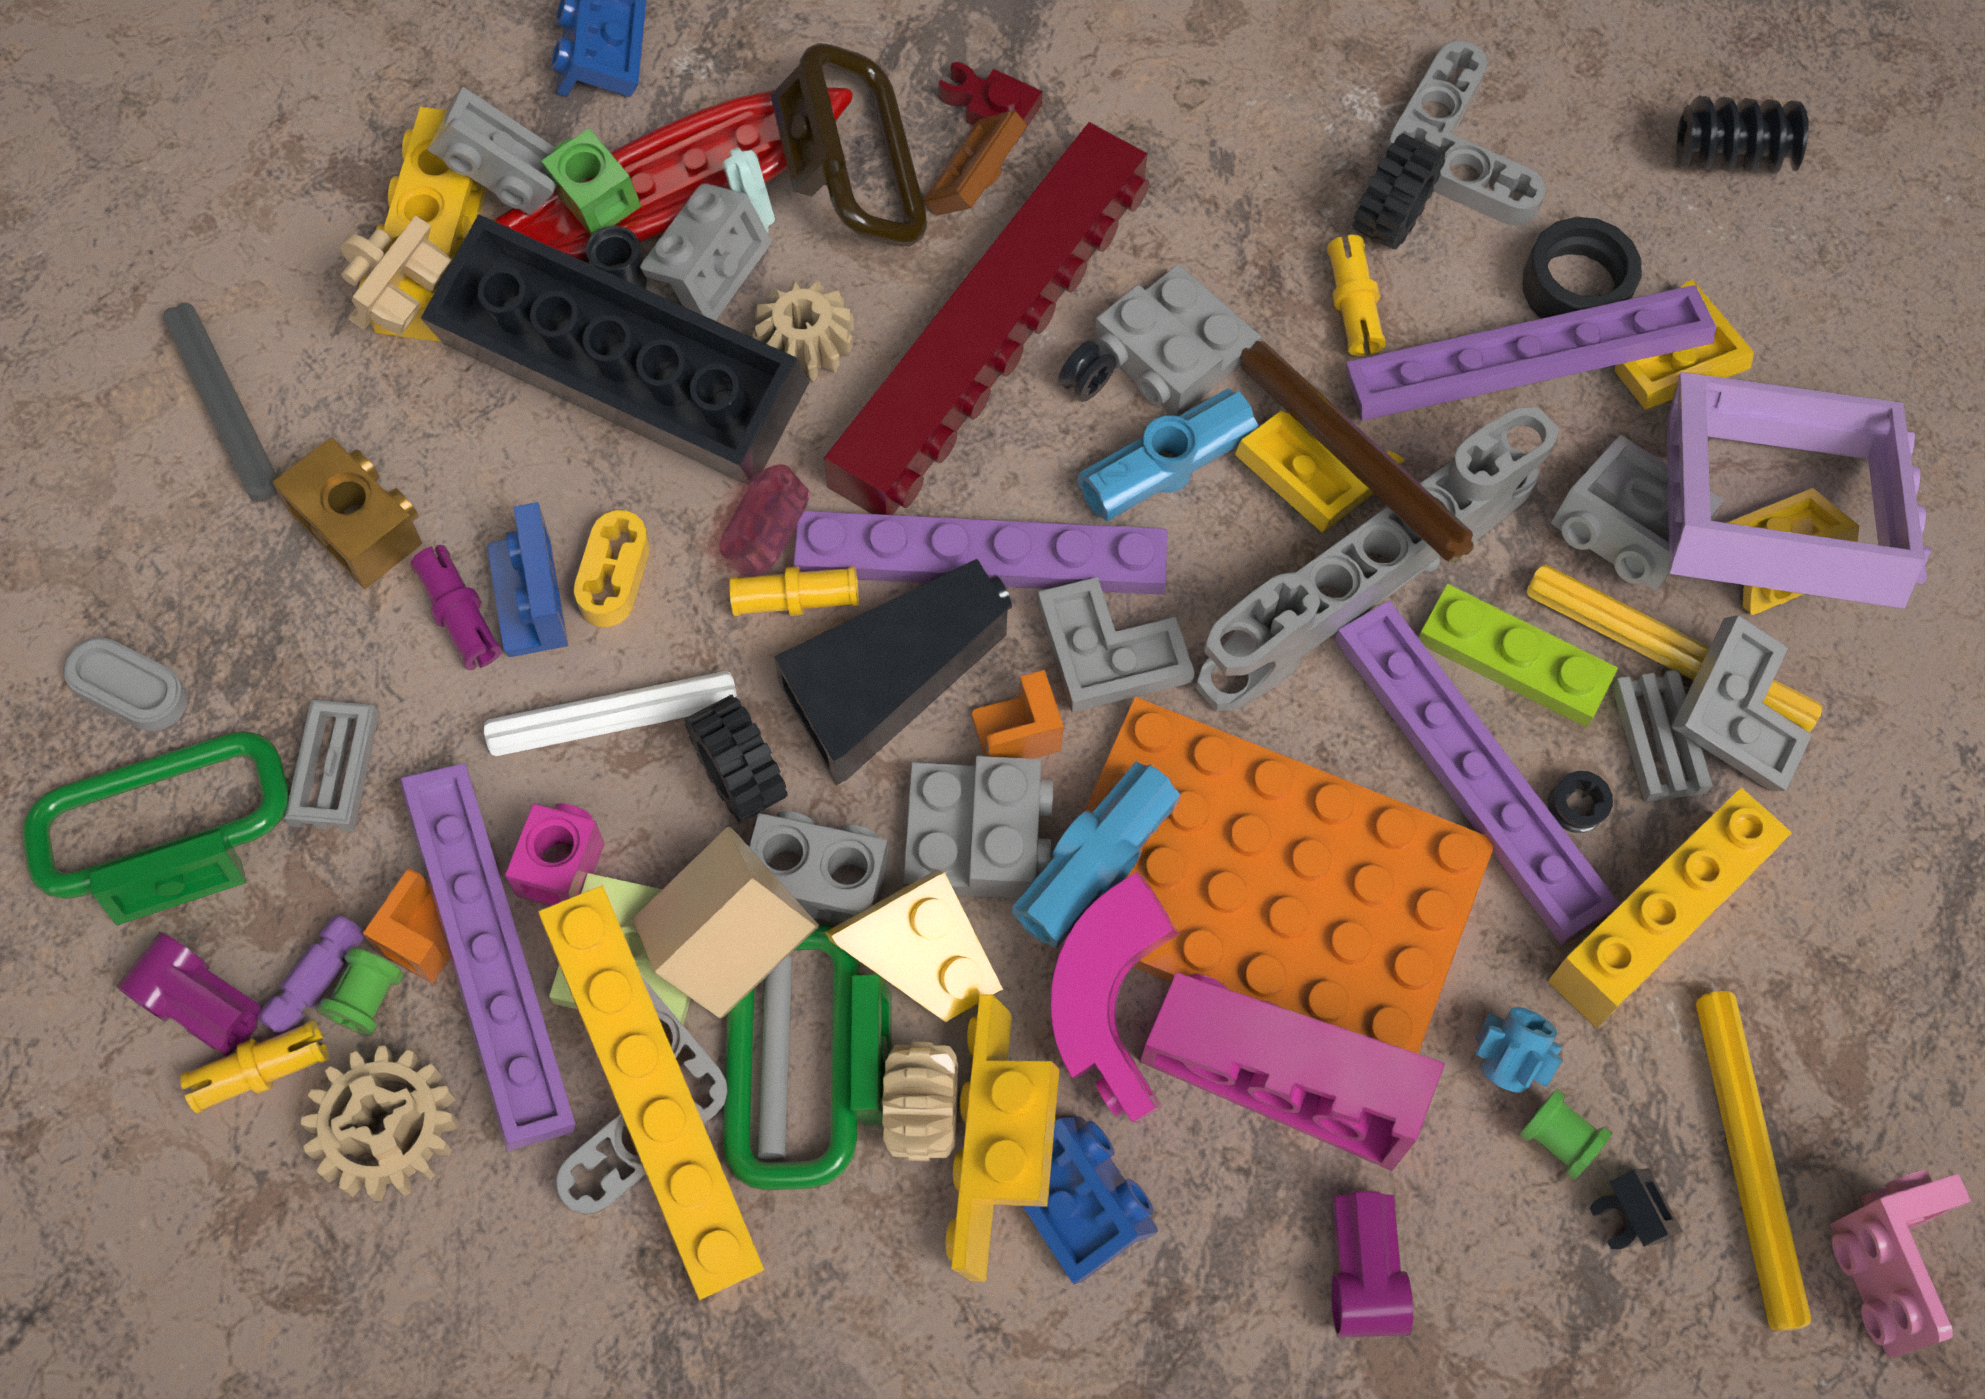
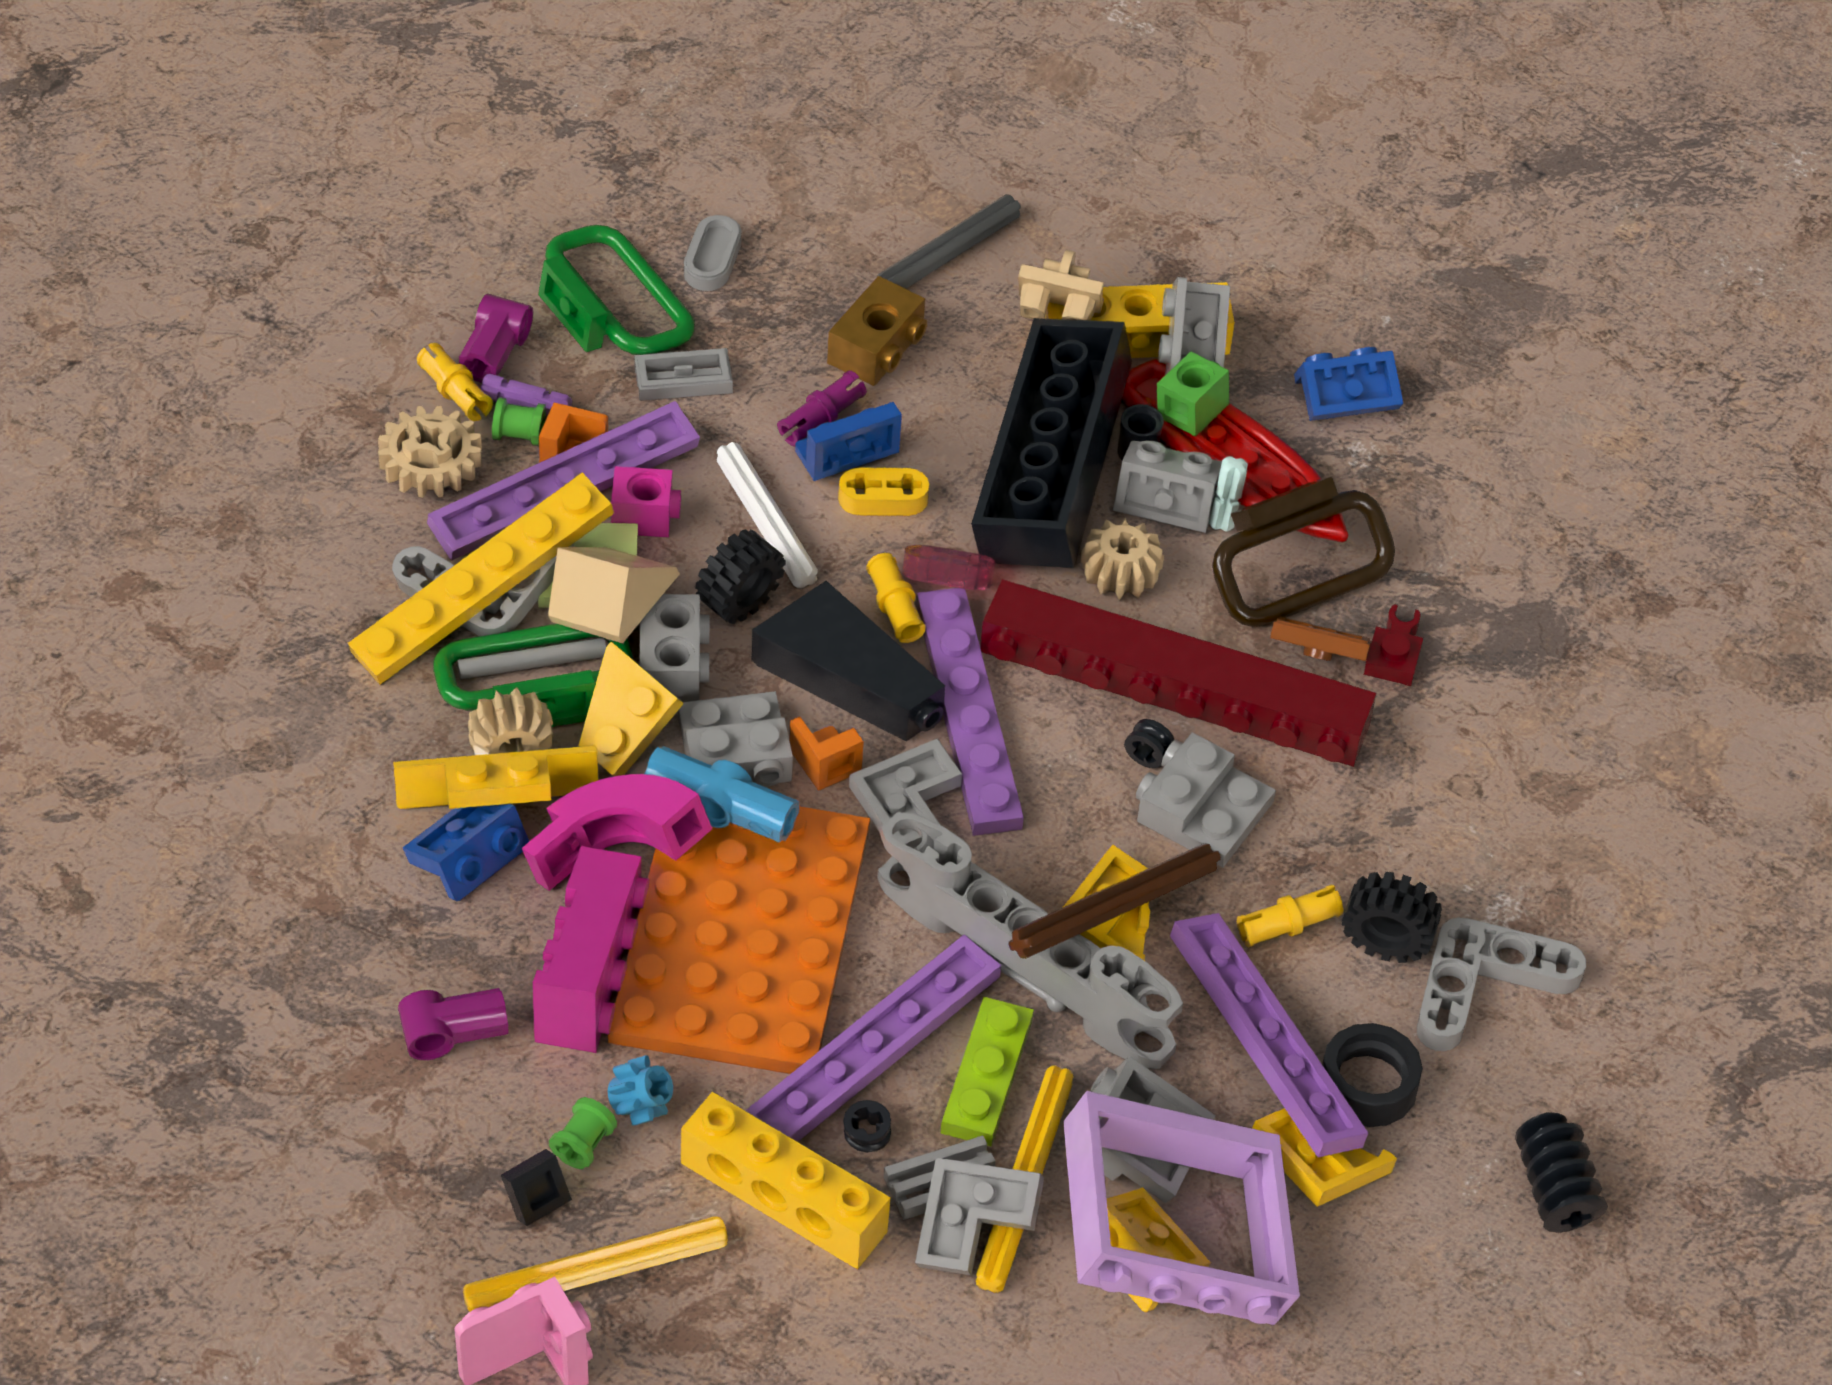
camera: 75 degrees right, 15 degrees down
(1141, 472) = (1088, 804): dark azure piece -> none

